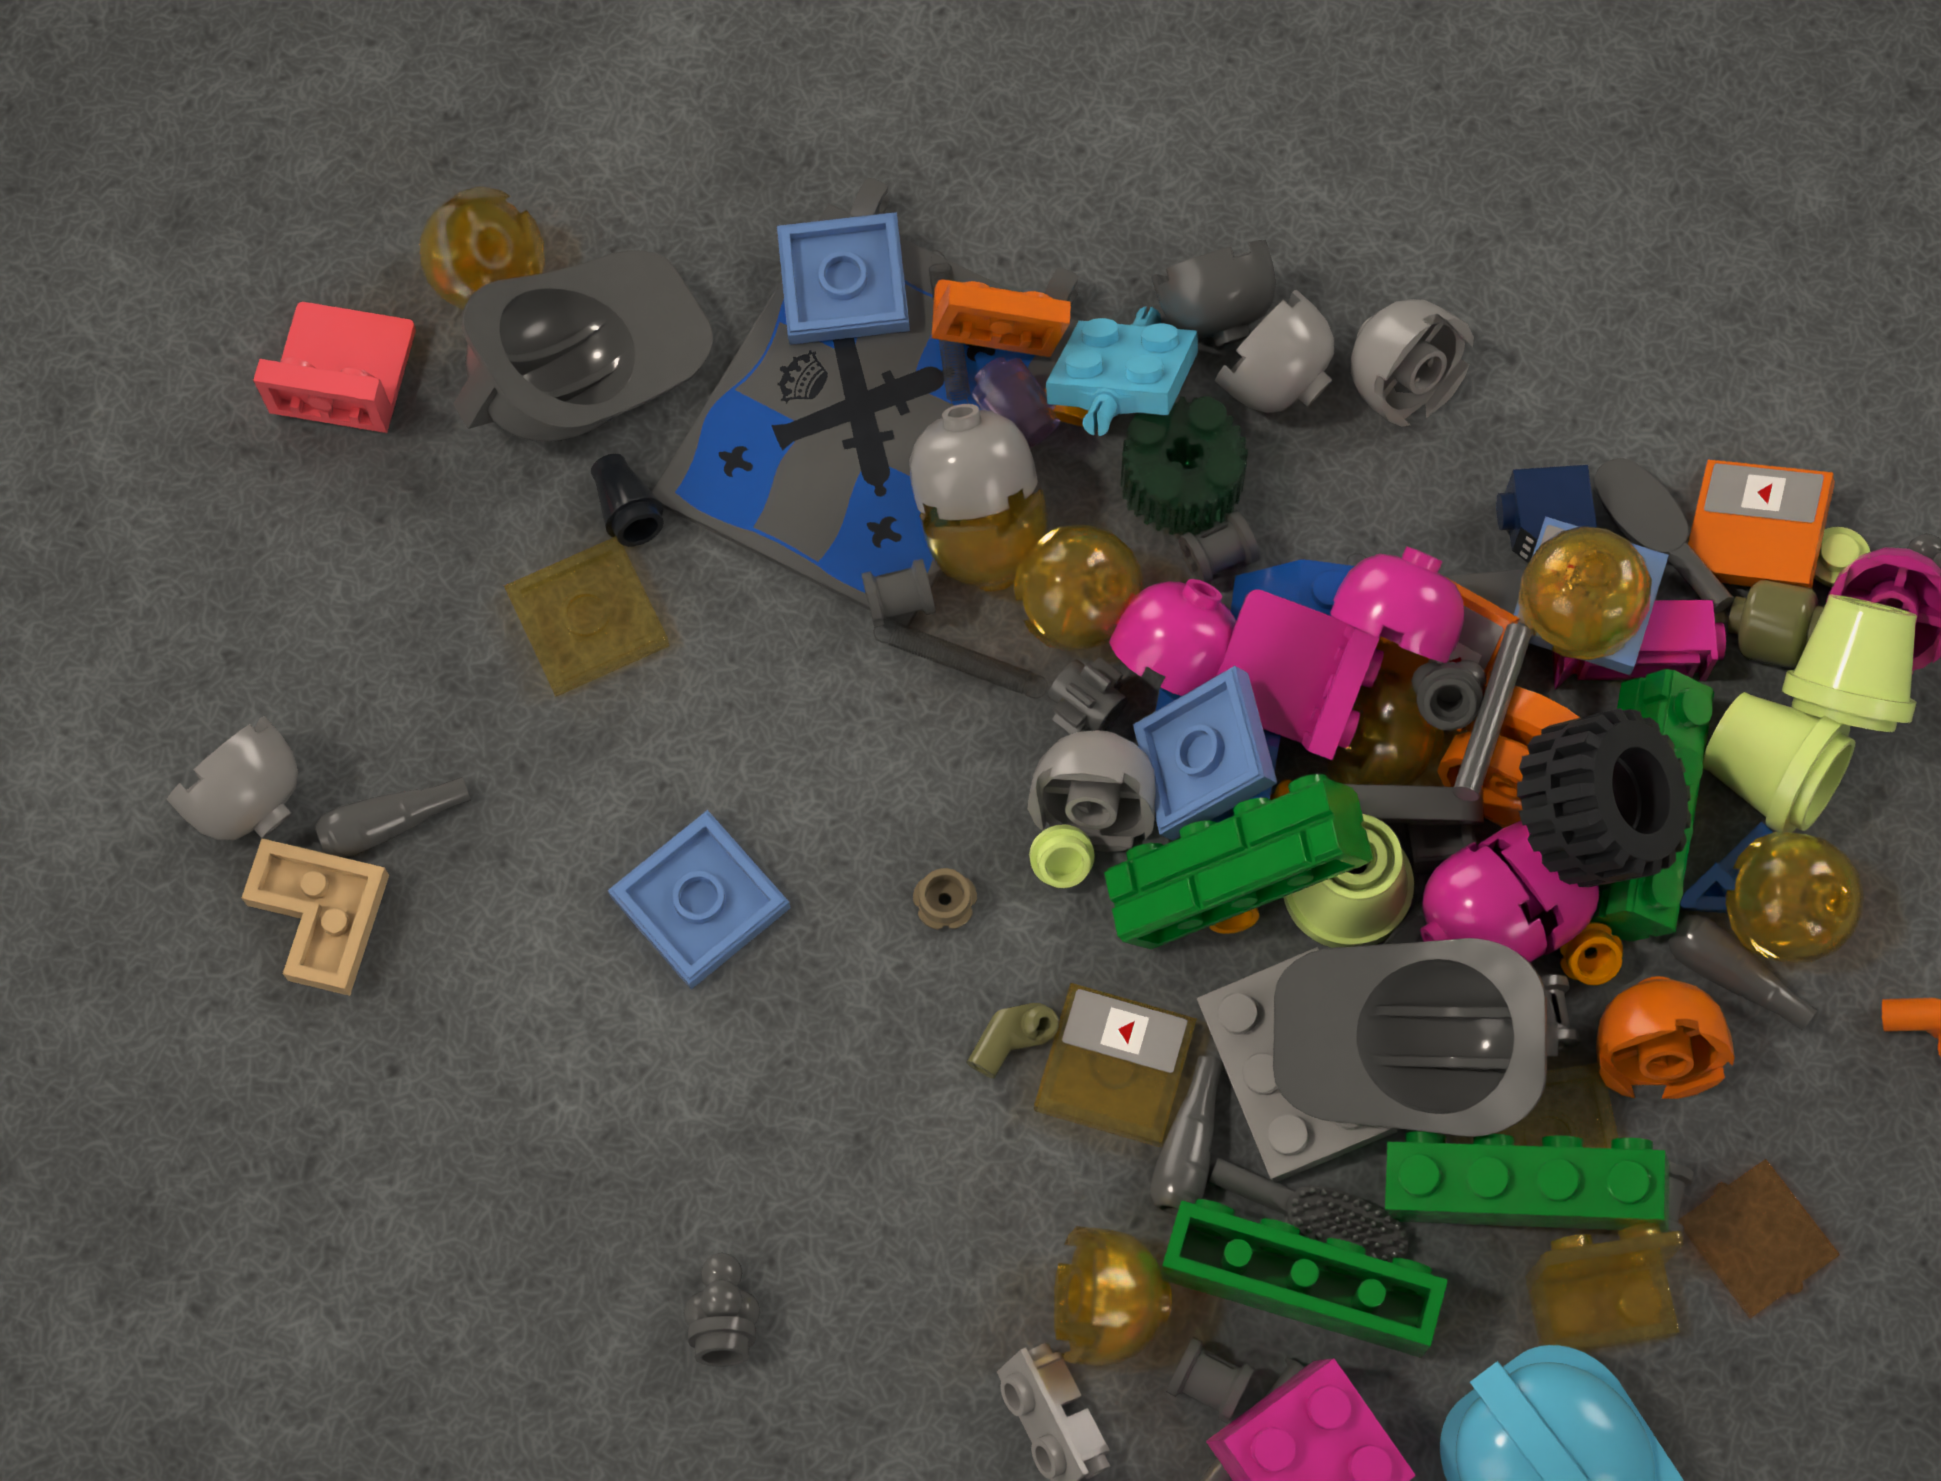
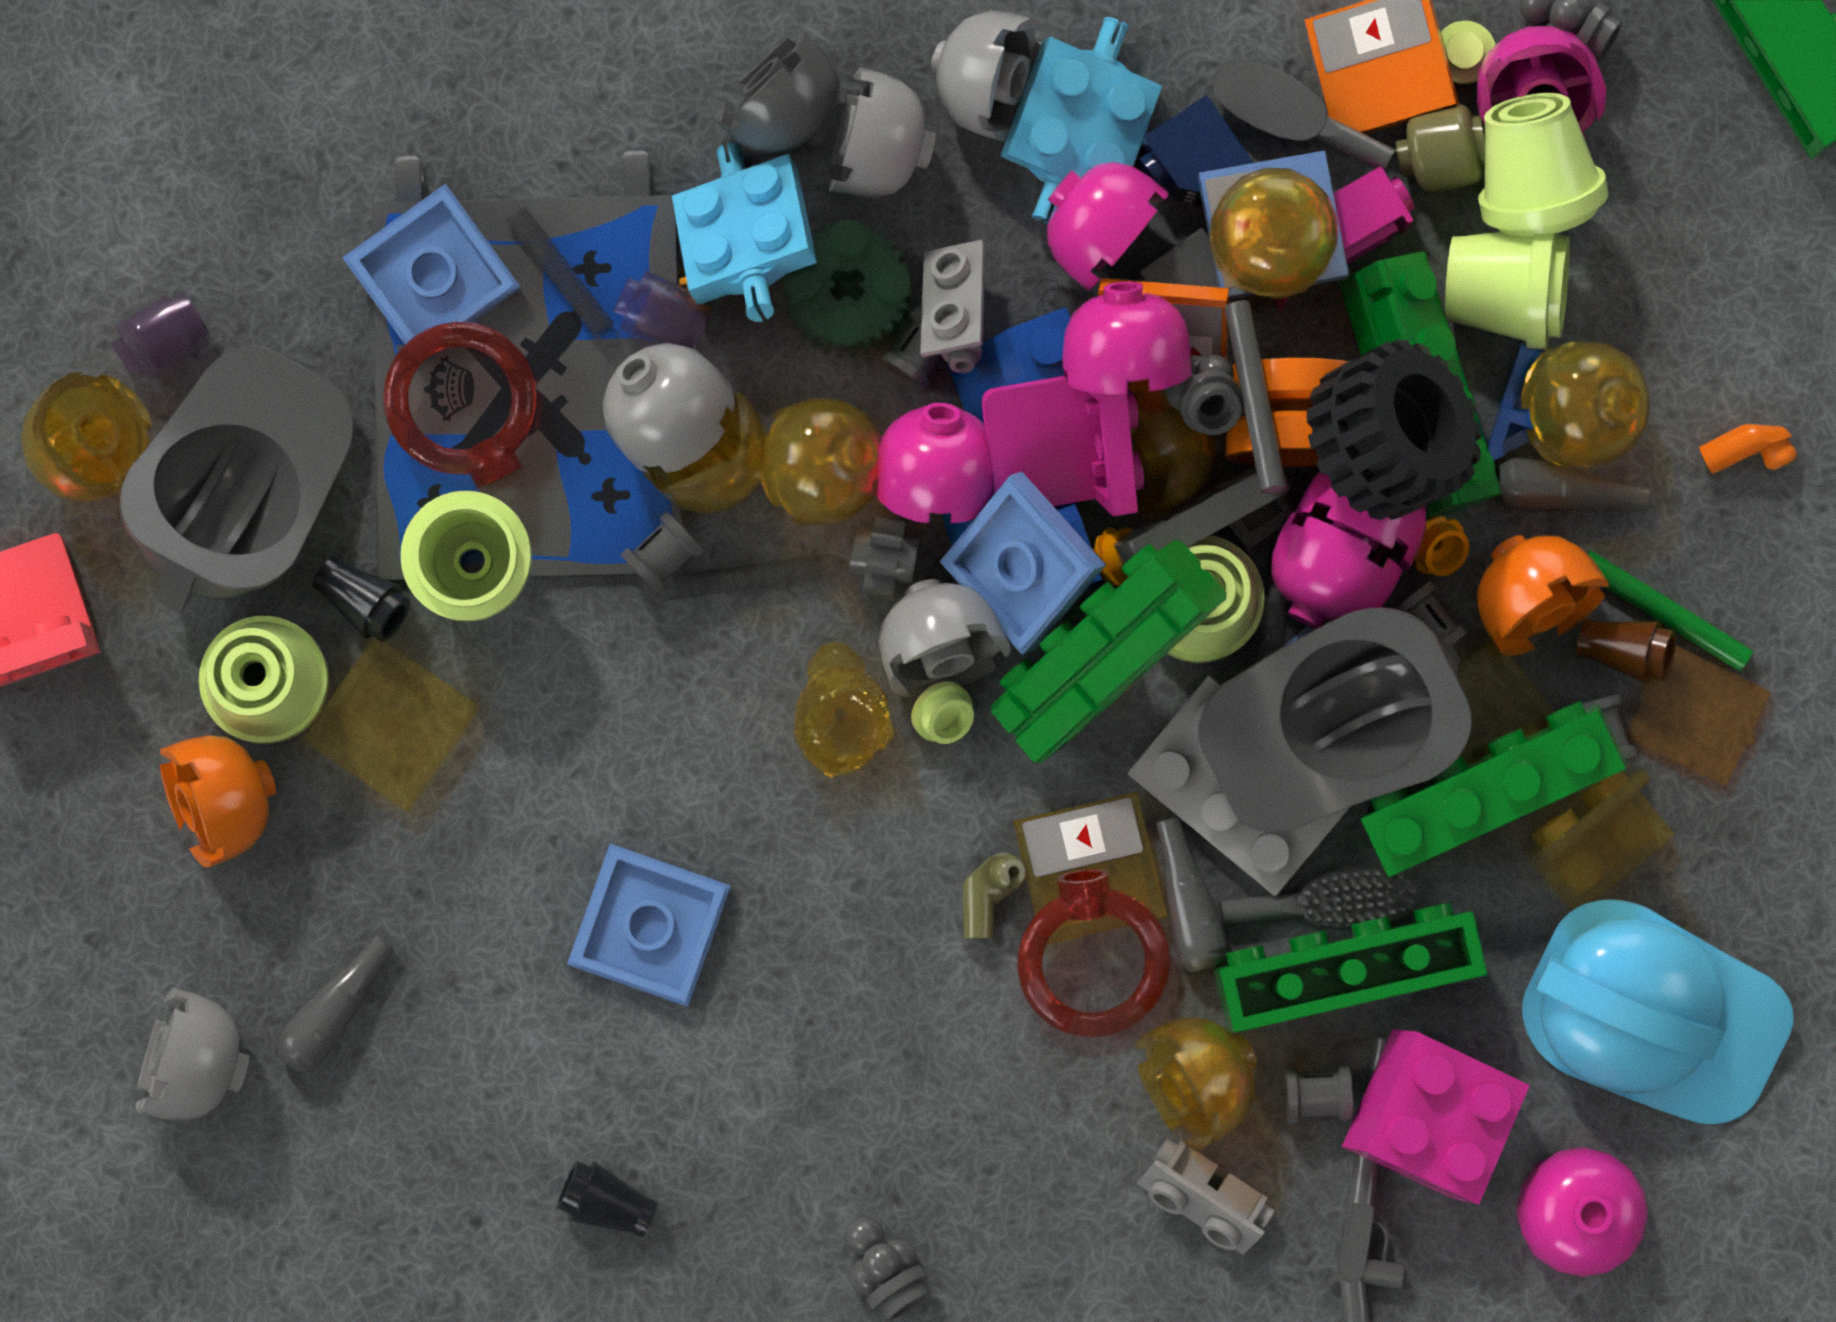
camera: 35 degrees left, 15 degrees up
(335, 906) = (337, 1109): tan plate -> none
(406, 586) = (218, 795): none -> orange cylinder
(505, 536) = (288, 696): none -> yellowish green piece
(513, 1109) = (604, 1200): none -> black cone
(592, 214) = (159, 335): none -> clear purple brick
(724, 474) = (440, 538): none -> yellowish green piece
(802, 442) = (490, 458): none -> clear red piece
(950, 883) = (862, 823): dark tan plate -> none
(978, 781) = (834, 683): none -> clear yellow piece
(998, 317) = (601, 240): orange bracket -> none
(1097, 1079) = (1086, 897): none -> clear red piece
(1268, 522) = (954, 304): none -> light grey hinge
(1439, 511) = (1099, 217): none -> dark pink cylinder
(1464, 440) = (1079, 112): none -> medium azure plate
(1726, 1138) = (1632, 648): none -> reddish brown cone
(1780, 1135) = (1673, 615): none -> green bar

